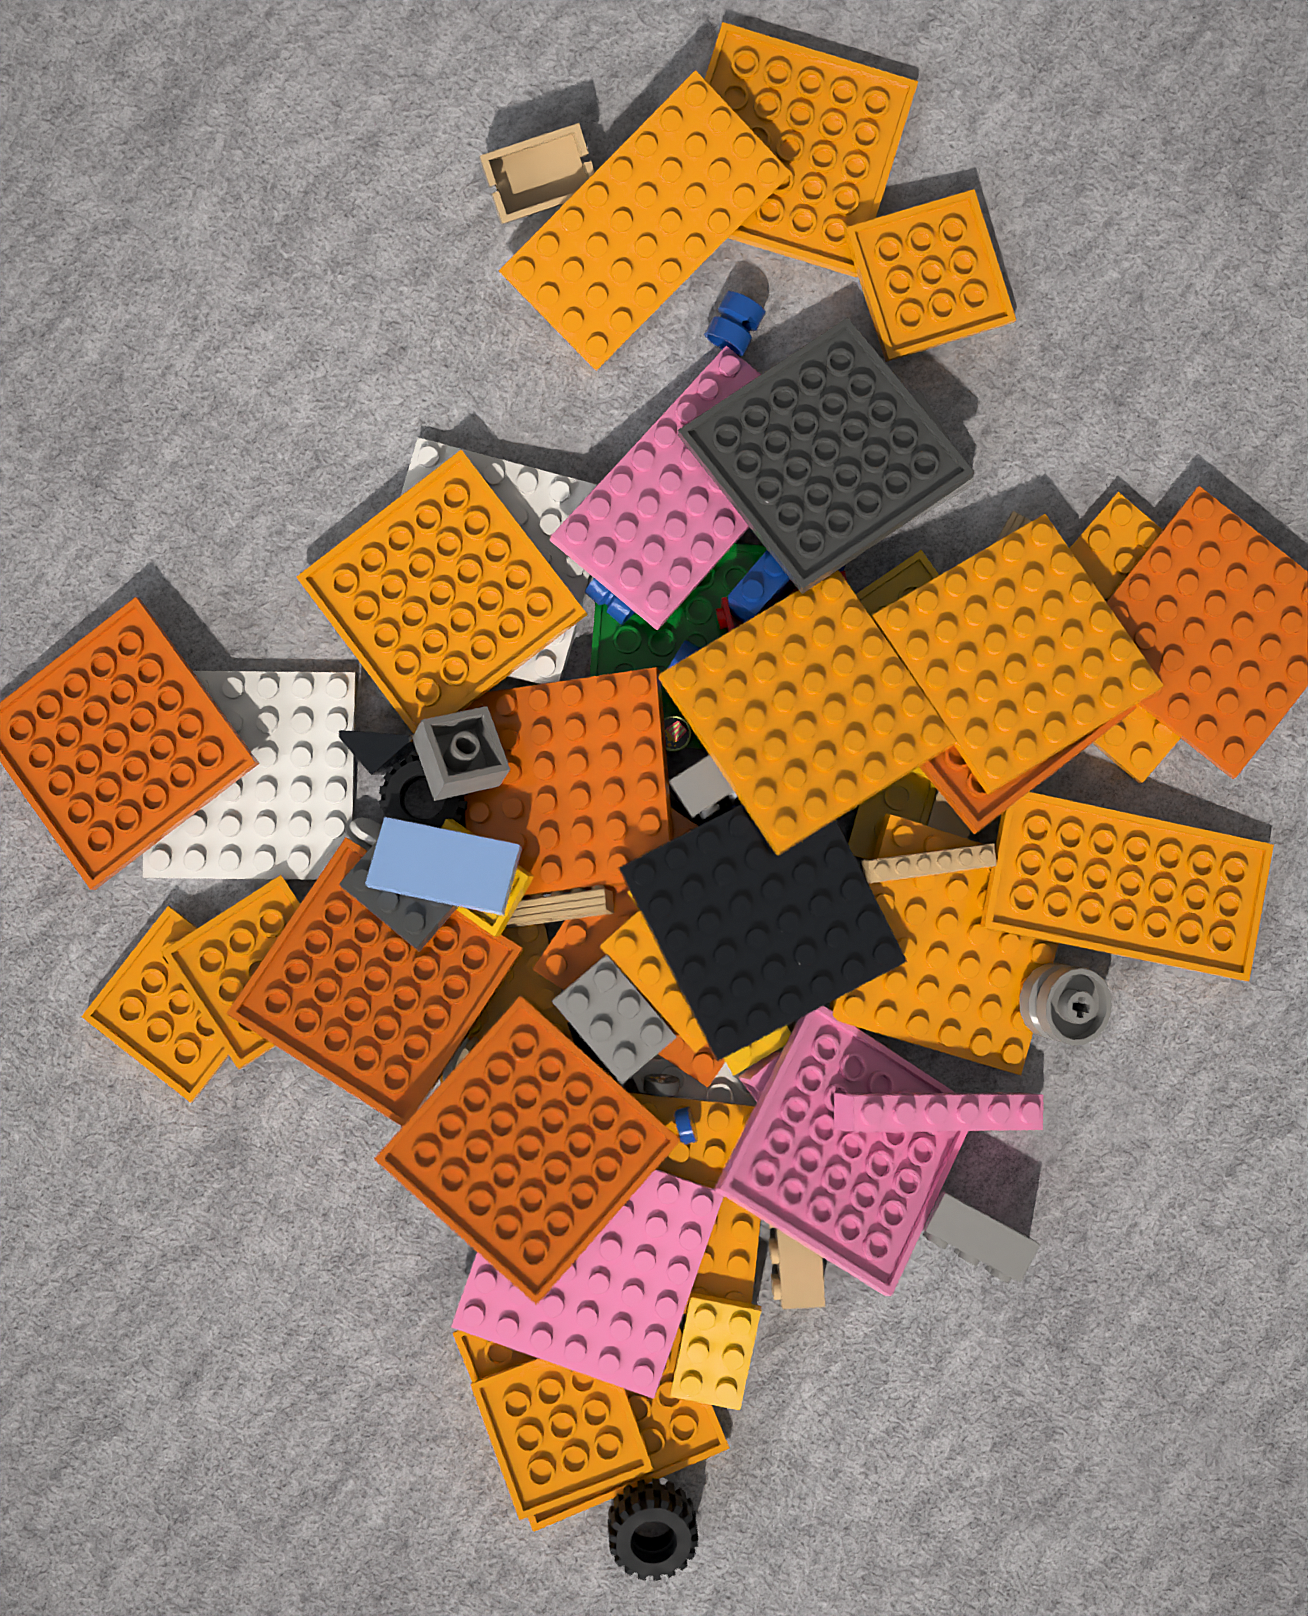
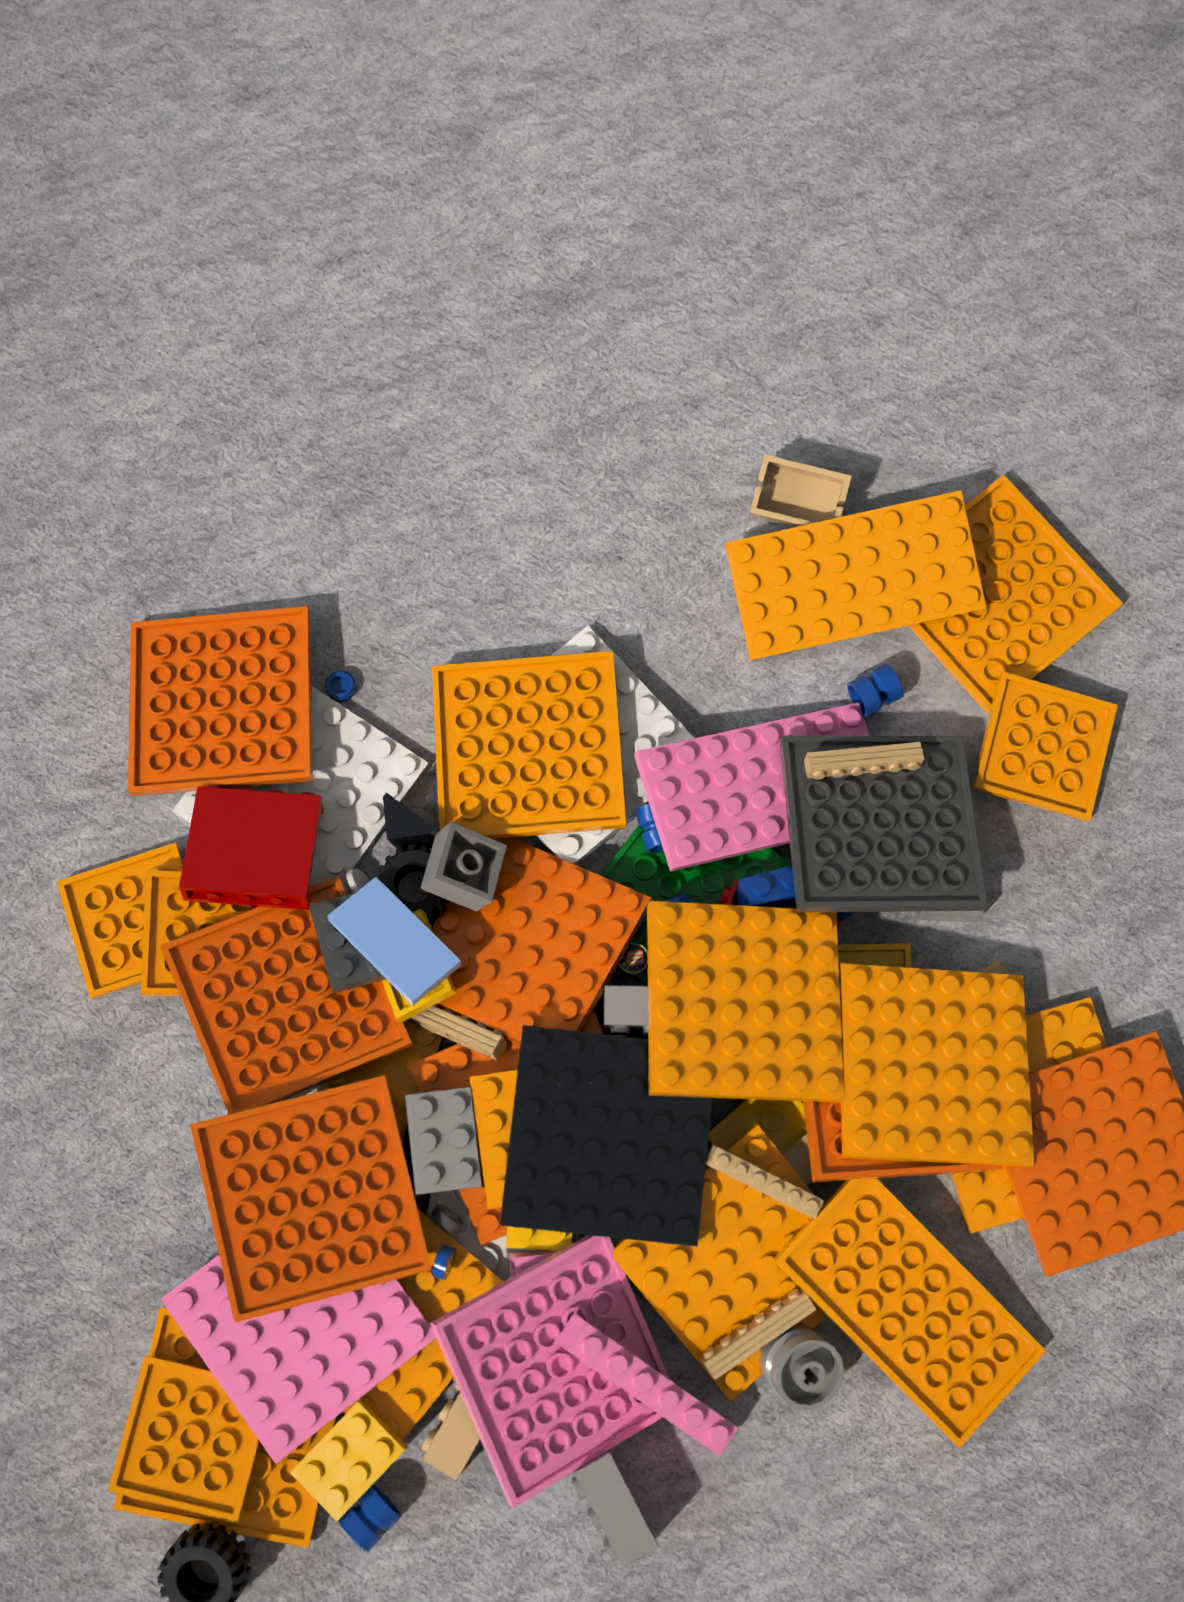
camera: 30 degrees right, 10 degrees down
(219, 652) = (340, 686): none -> blue tile
(246, 864) = (251, 847): none -> red panel
(767, 1387) = (366, 1522): none -> blue wheel
(771, 404) = (863, 760): none -> tan piece
(1008, 1000) = (757, 1333): none -> tan piece

